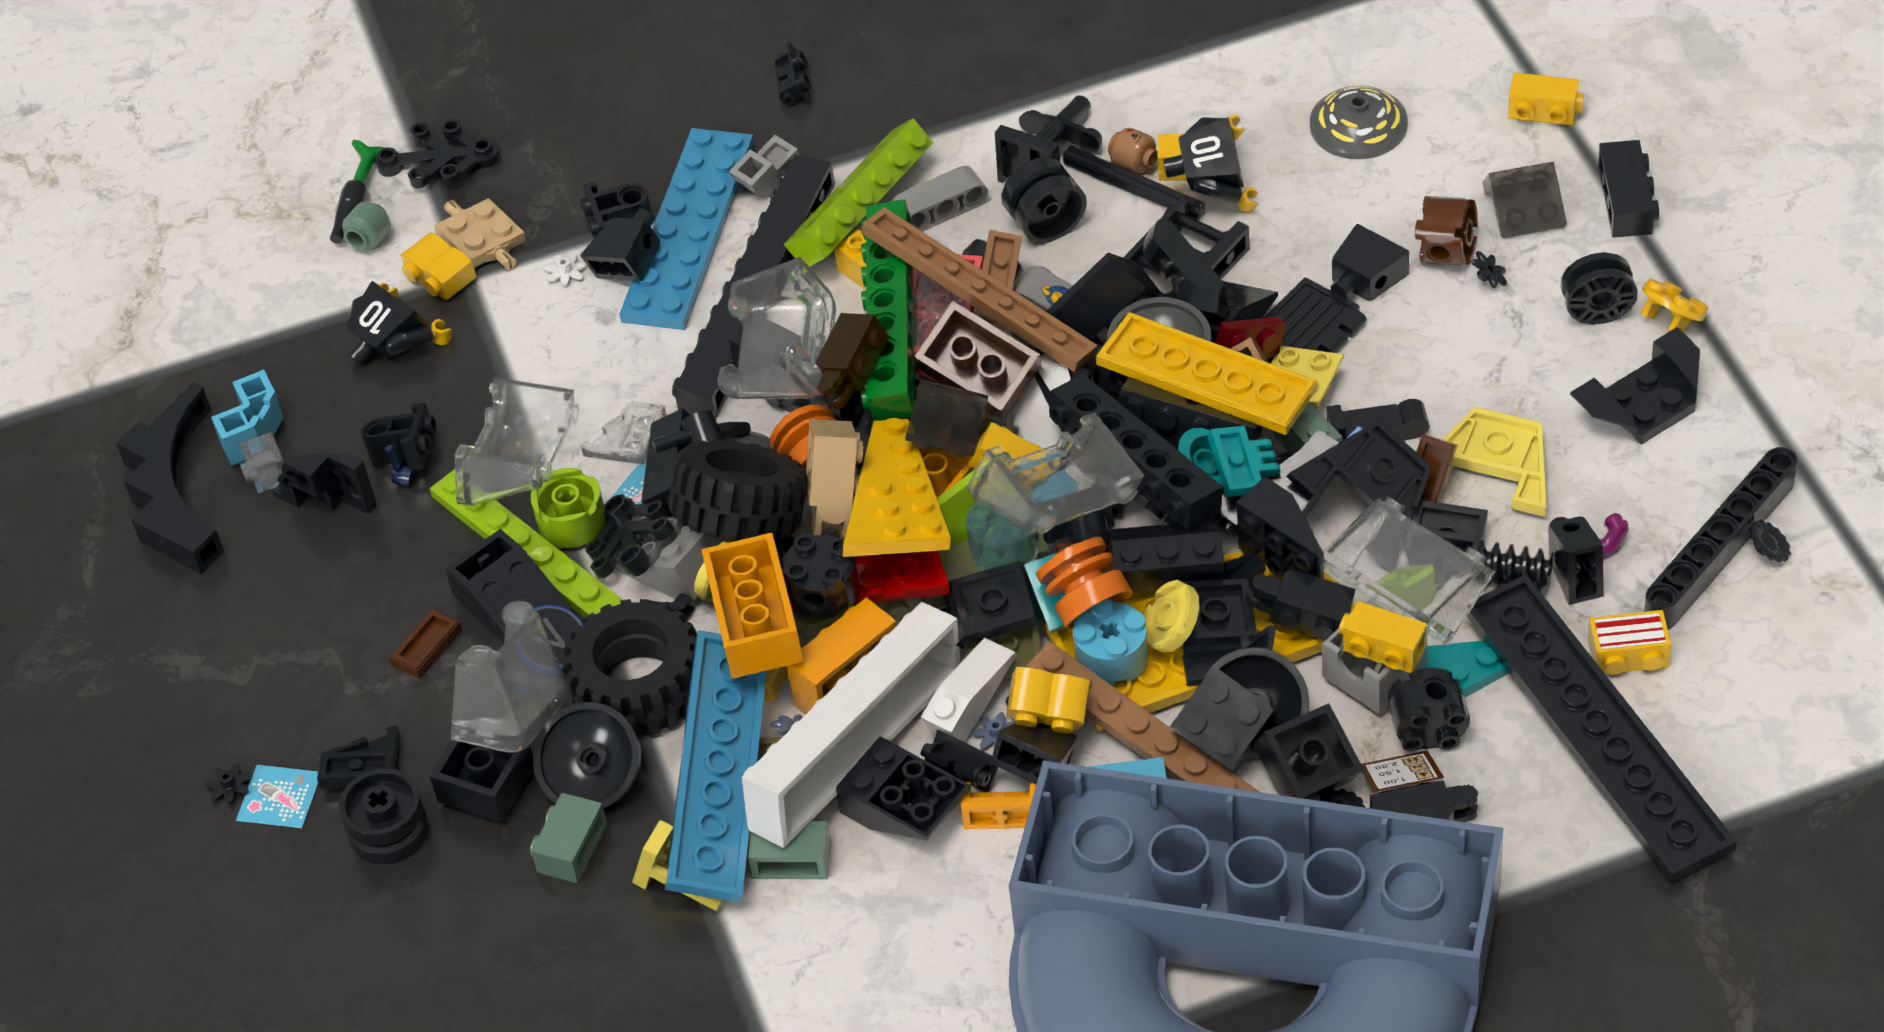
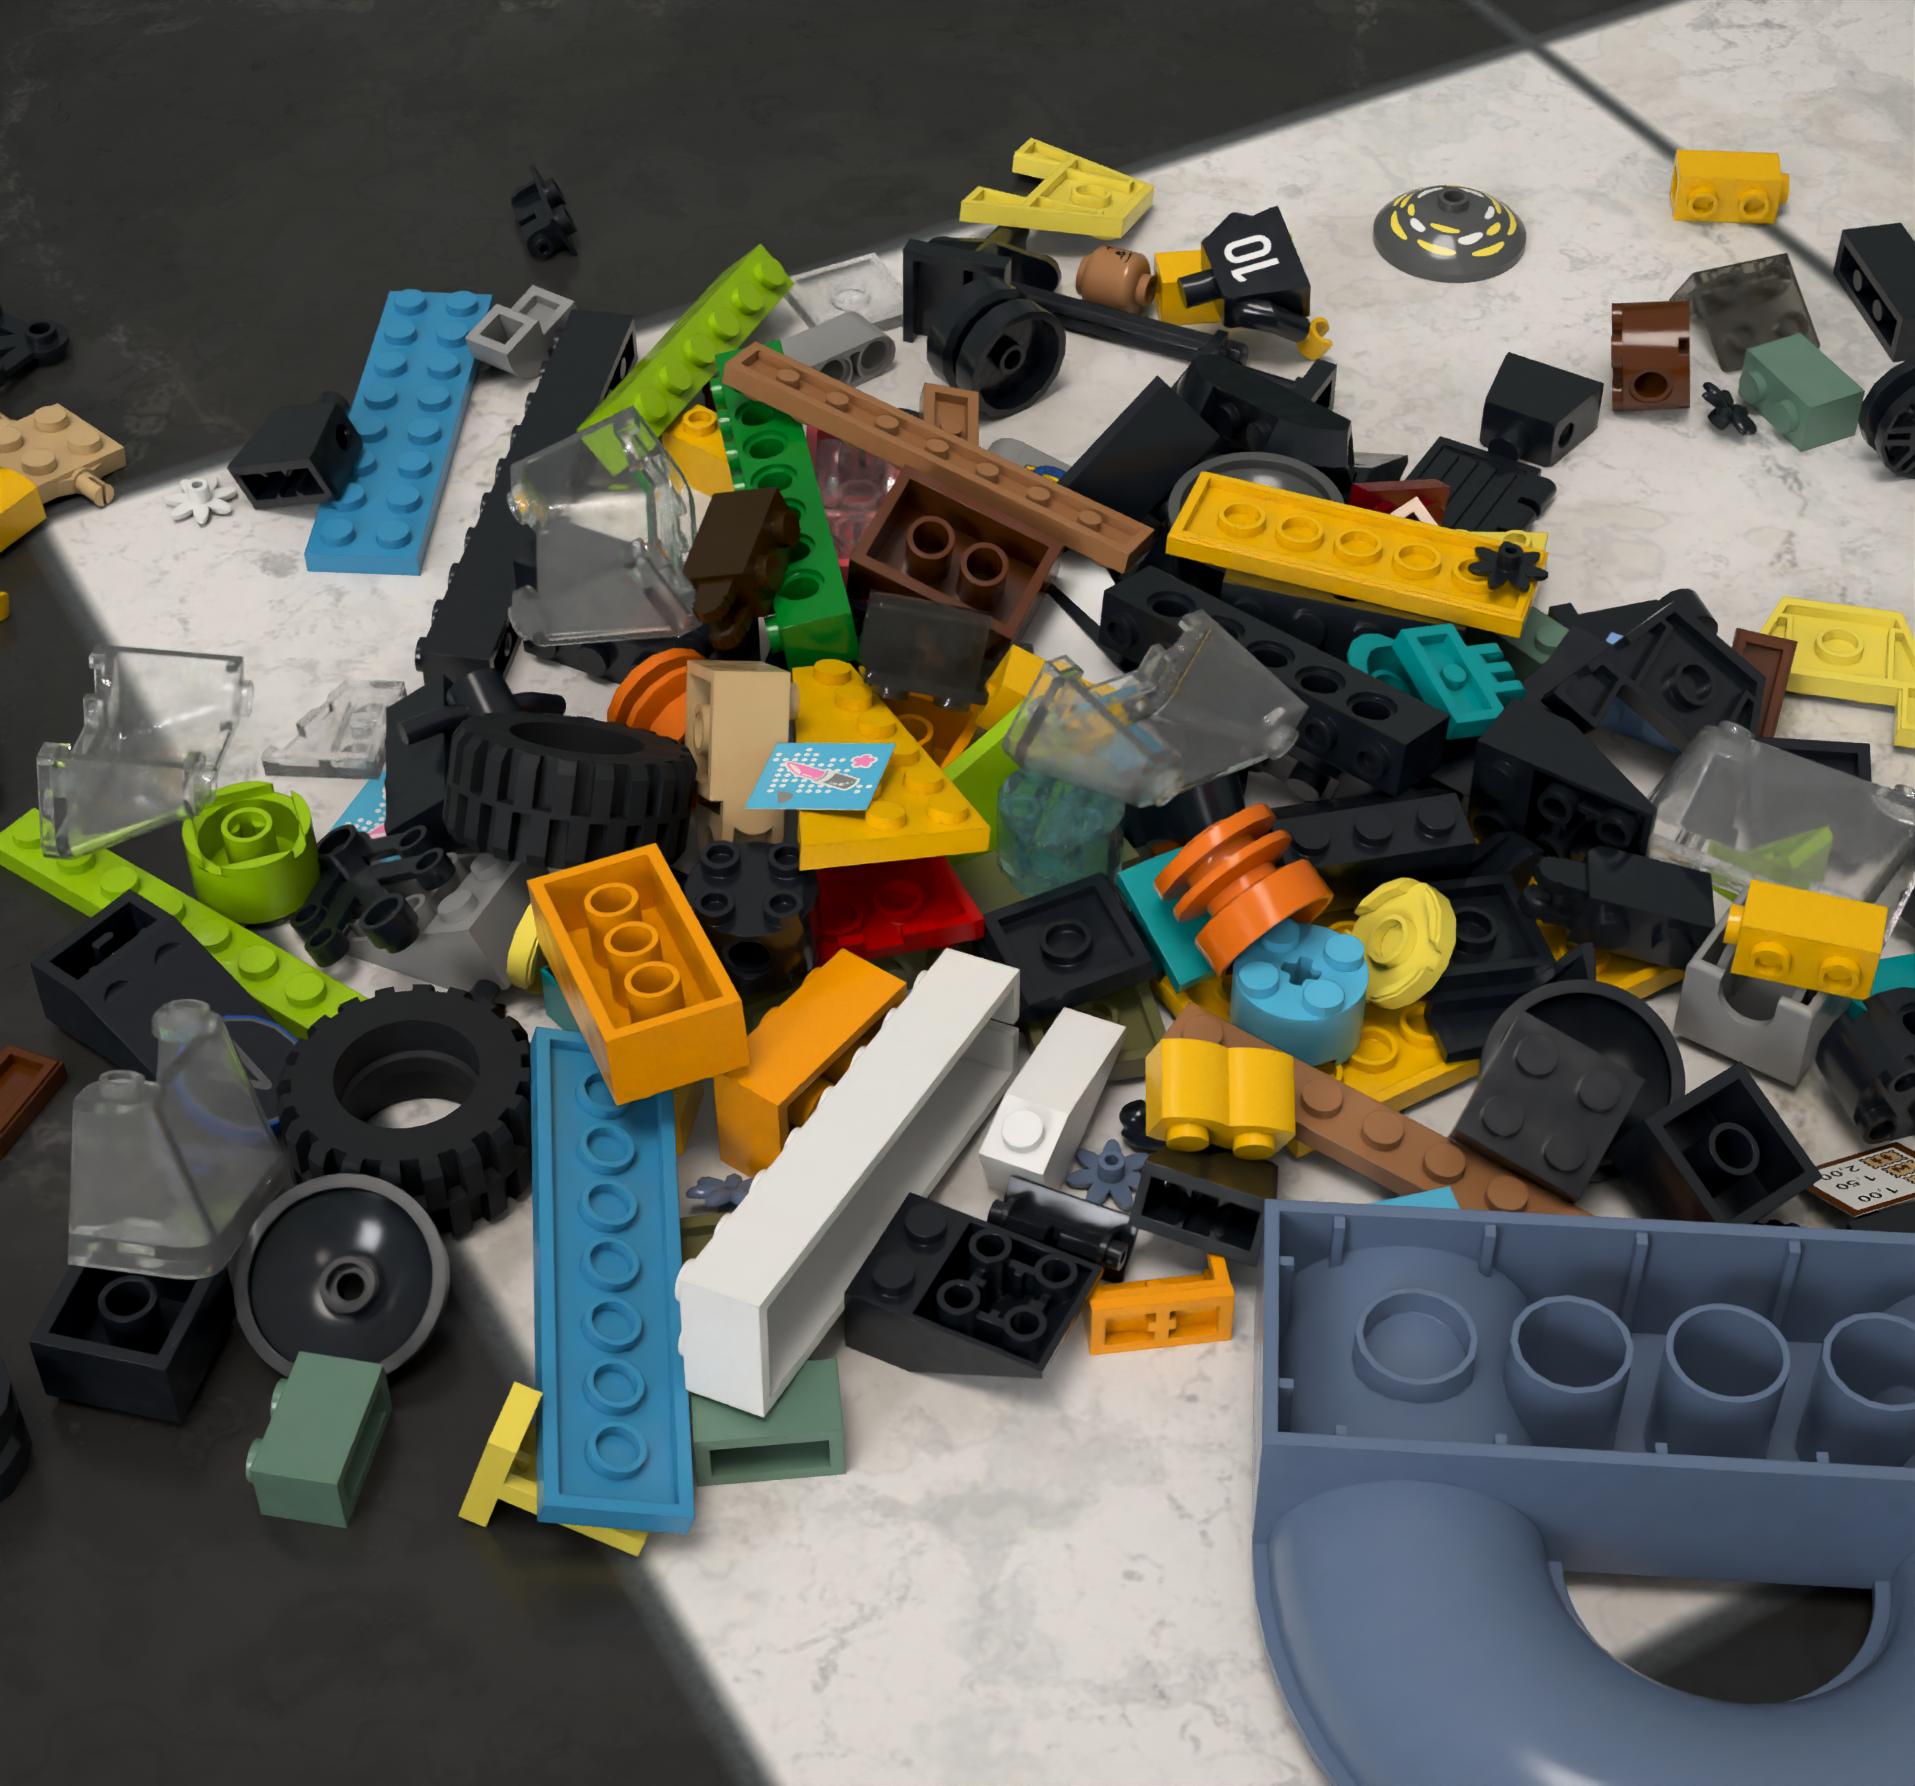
camera: 15 degrees left, 5 degrees down
(612, 203) = (254, 398): black pin -> none
(865, 500) = (821, 776): none -> medium azure sticker
(967, 146) = (848, 286): none -> clear tile
(1127, 86) = (1071, 198): none -> light yellow wing
(1286, 390) = (1509, 565): none -> black plant
(1535, 260) = (1800, 392): none -> sand green piece

